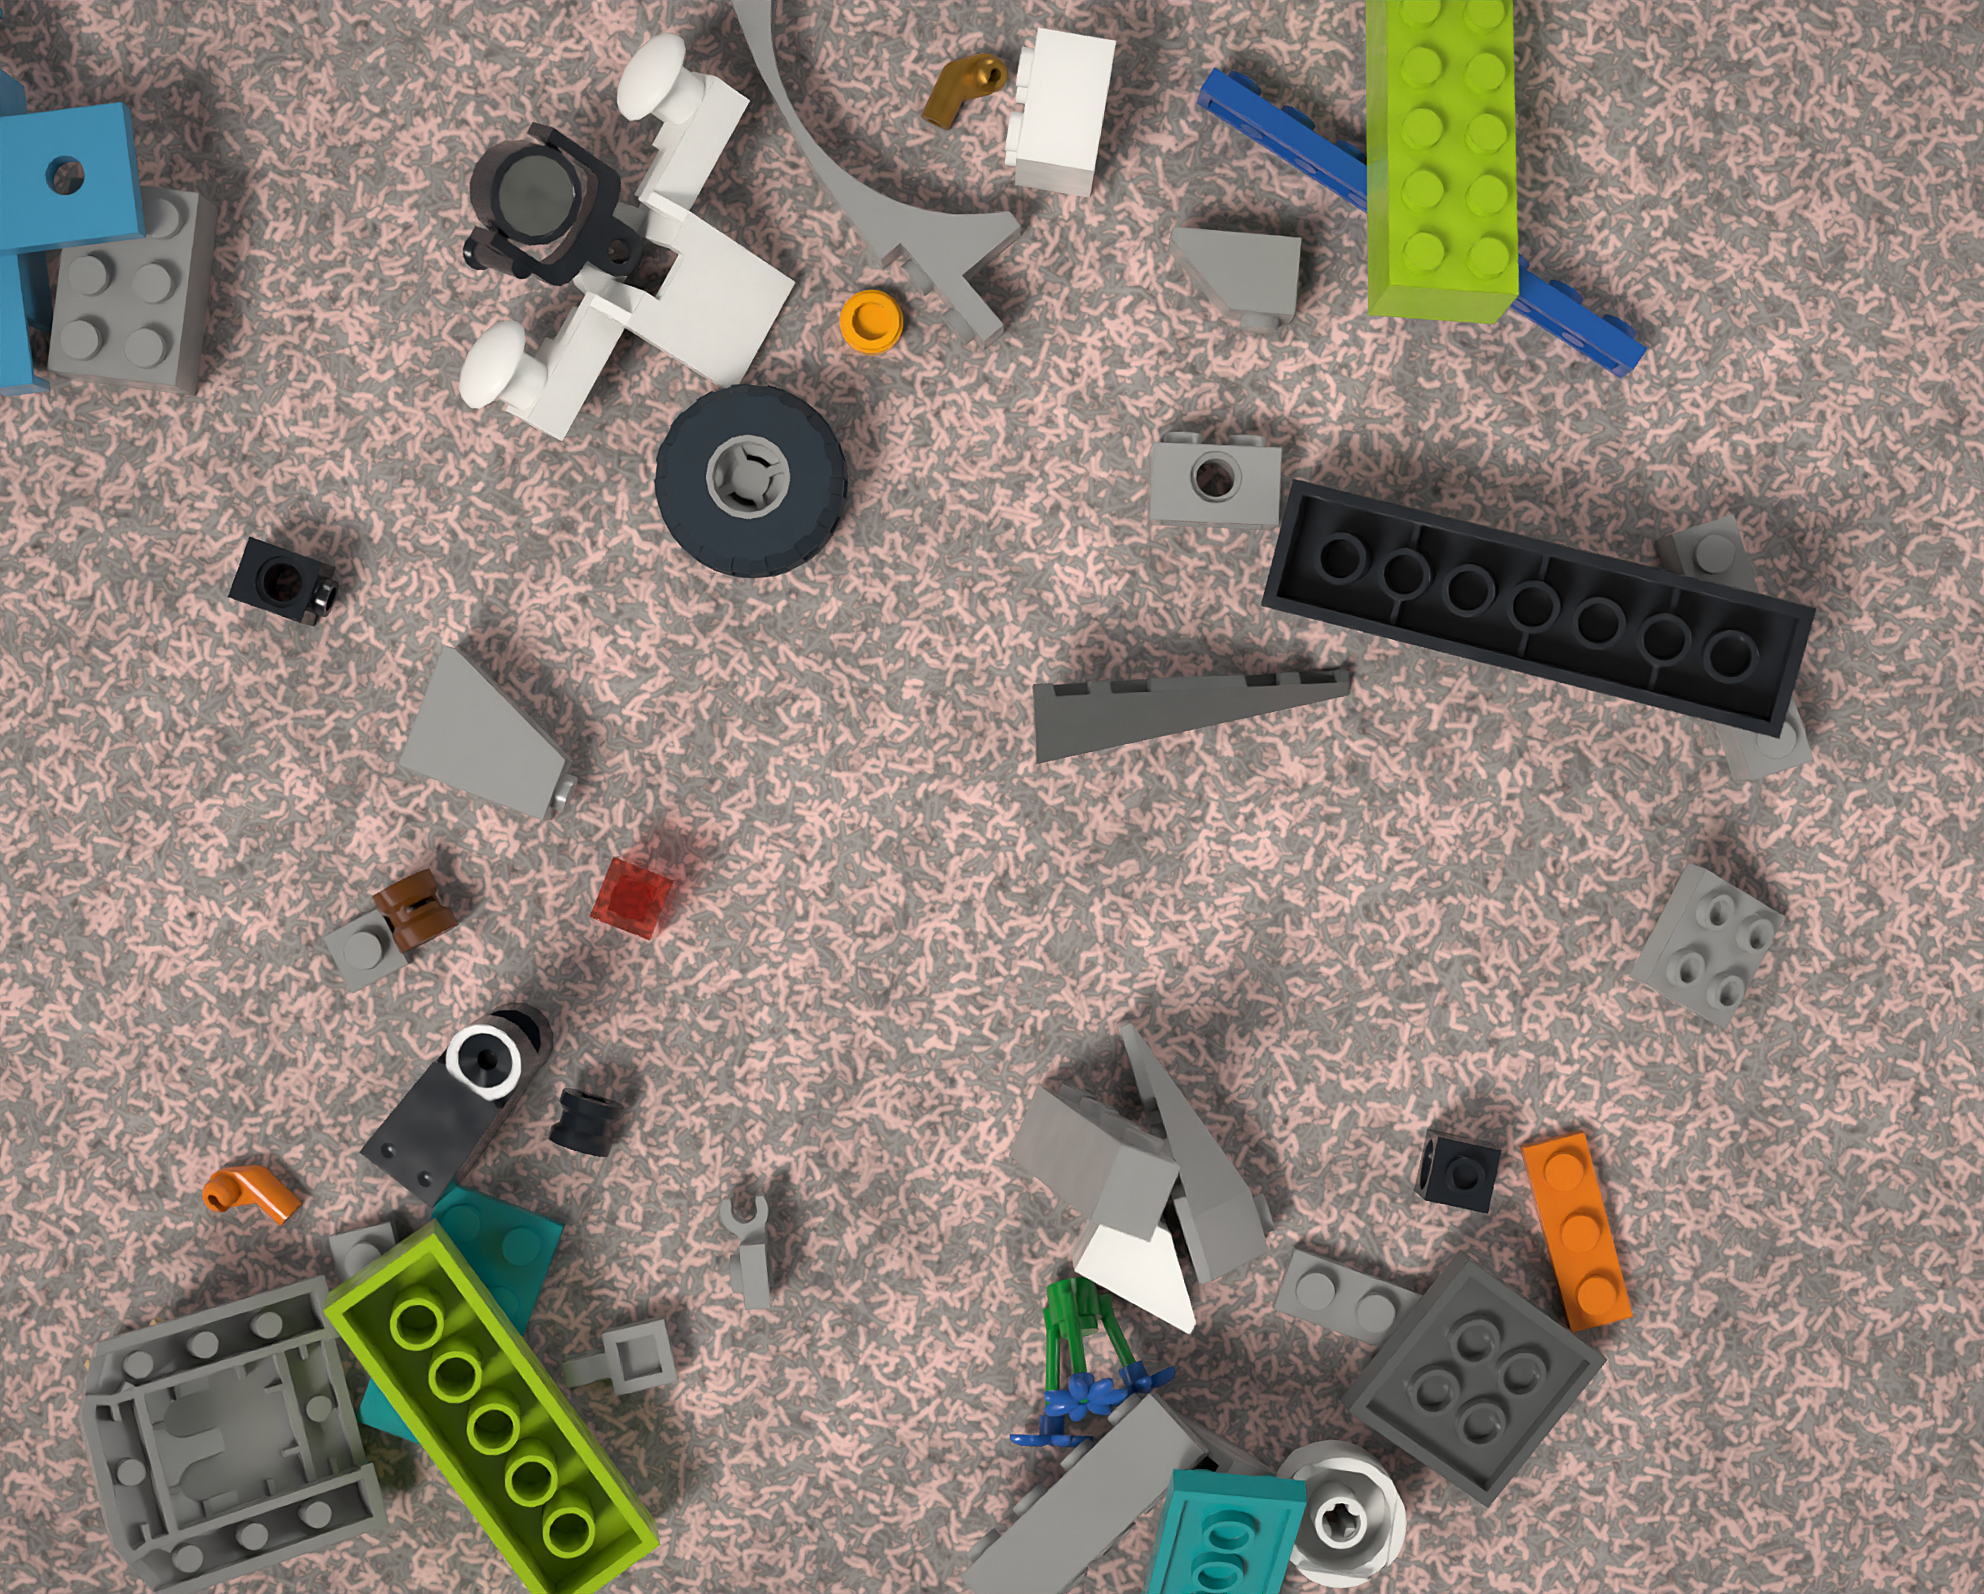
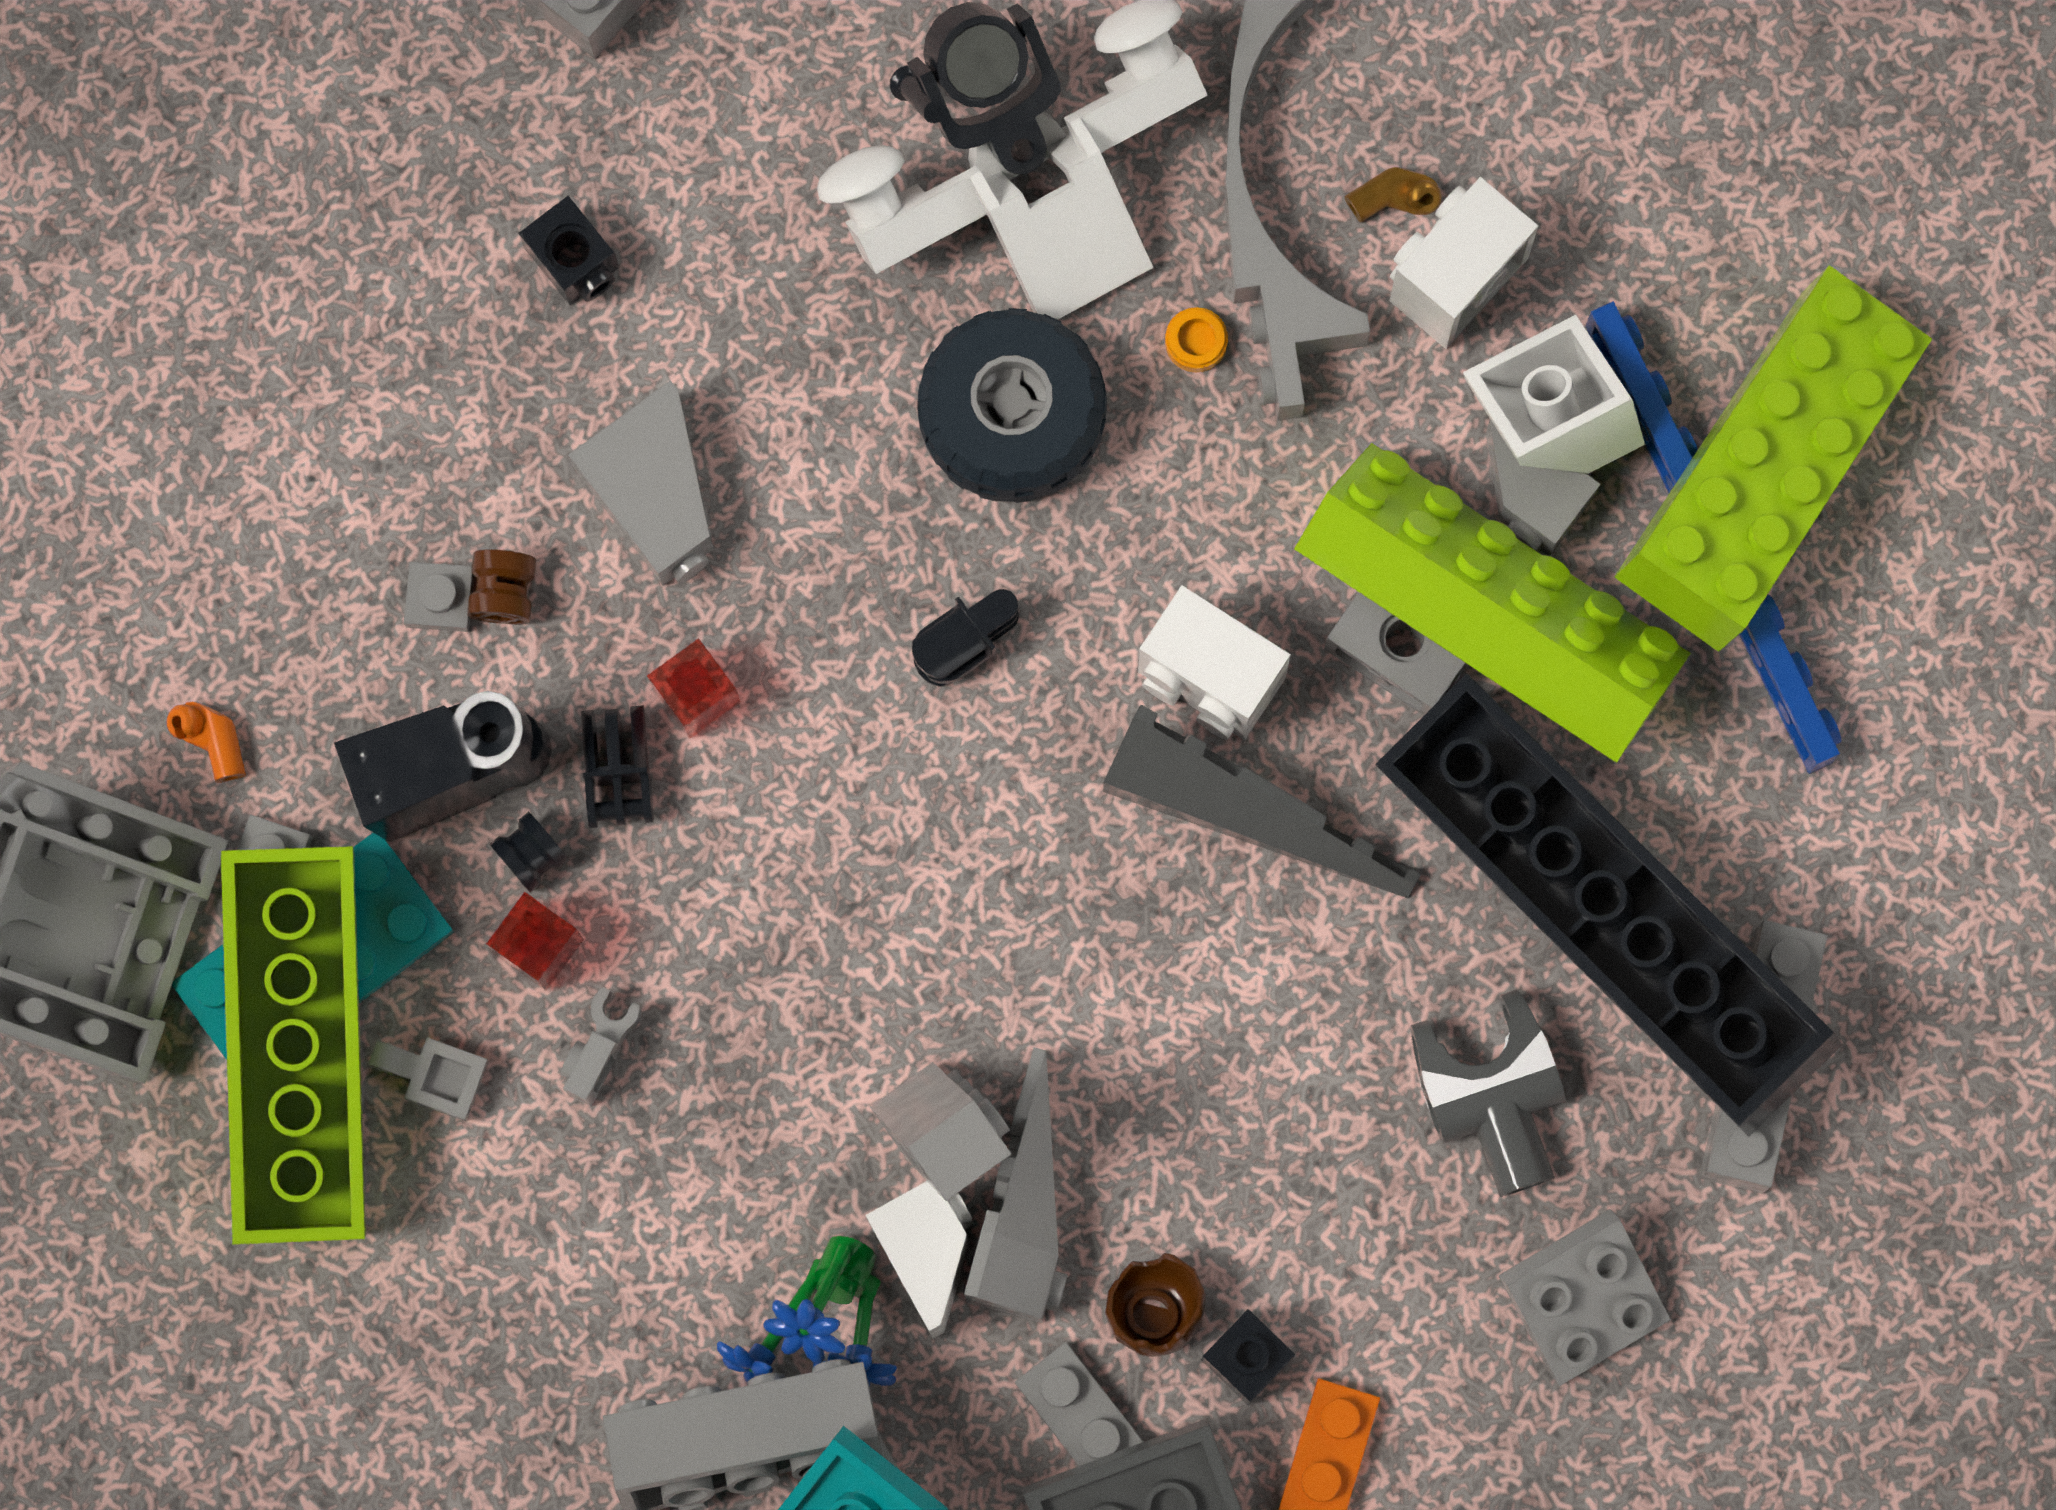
camera: 40 degrees right, 10 degrees down
(611, 1002) = (616, 772): none -> black arm
(640, 1199) = (535, 941): none -> clear red brick
(834, 712) = (963, 637): none -> black arm
(1068, 604) = (1211, 665): none -> white brick
(1222, 187) = (1557, 401): none -> white slope
(1275, 399) = (1492, 600): none -> lime brick
(1360, 1192) = (1151, 1328): none -> reddish brown hair
(1529, 823) = (1495, 1096): none -> dark grey connector

